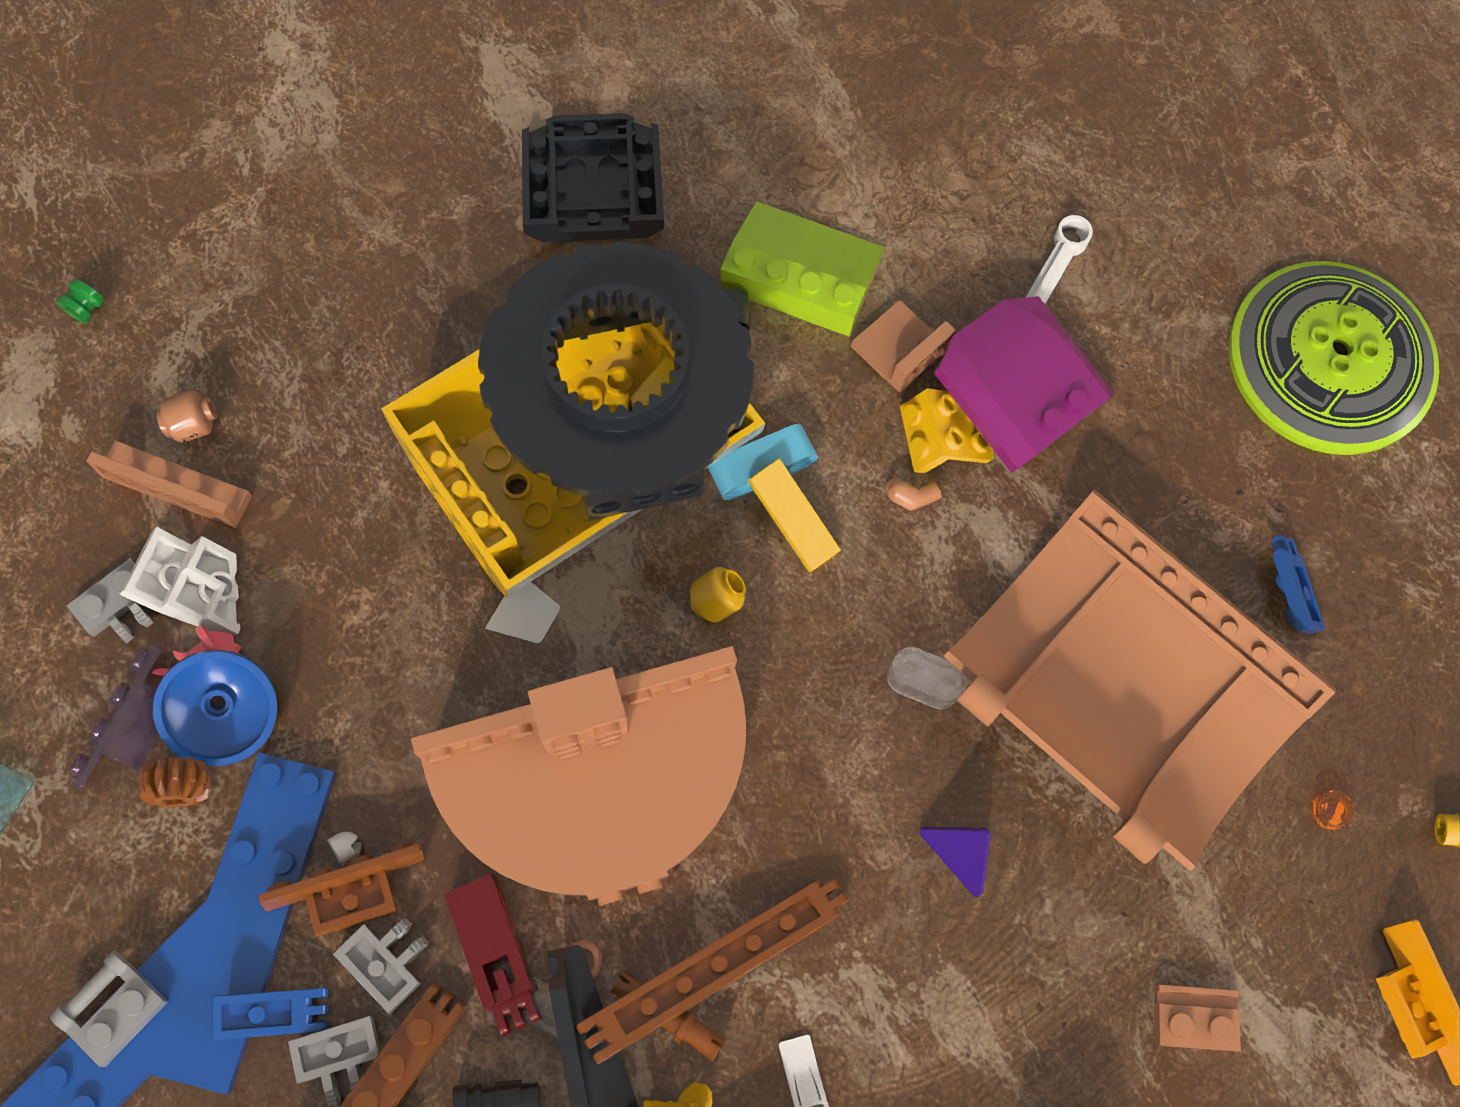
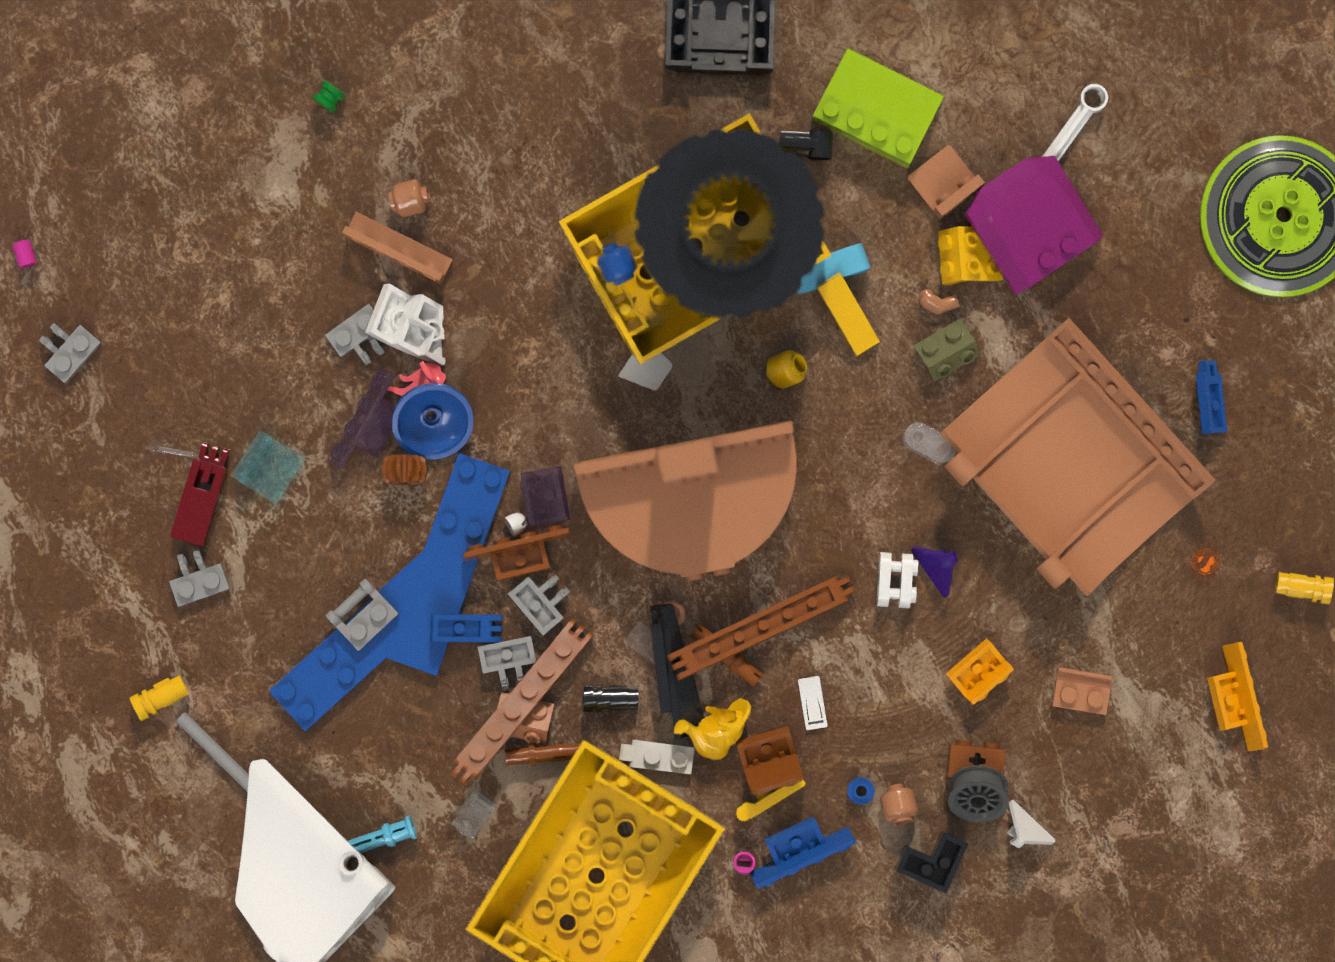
camera: 10 degrees right, 15 degrees up
(384, 803) = (545, 496): none -> clear purple bracket
(463, 452) = (617, 264): none -> blue head
(486, 936) = (610, 593): dark red hinge -> none
(919, 859) = (906, 593): none -> white brick
(934, 553) = (947, 350): none -> olive bracket
(1046, 1004) = (979, 672): none -> light orange bracket

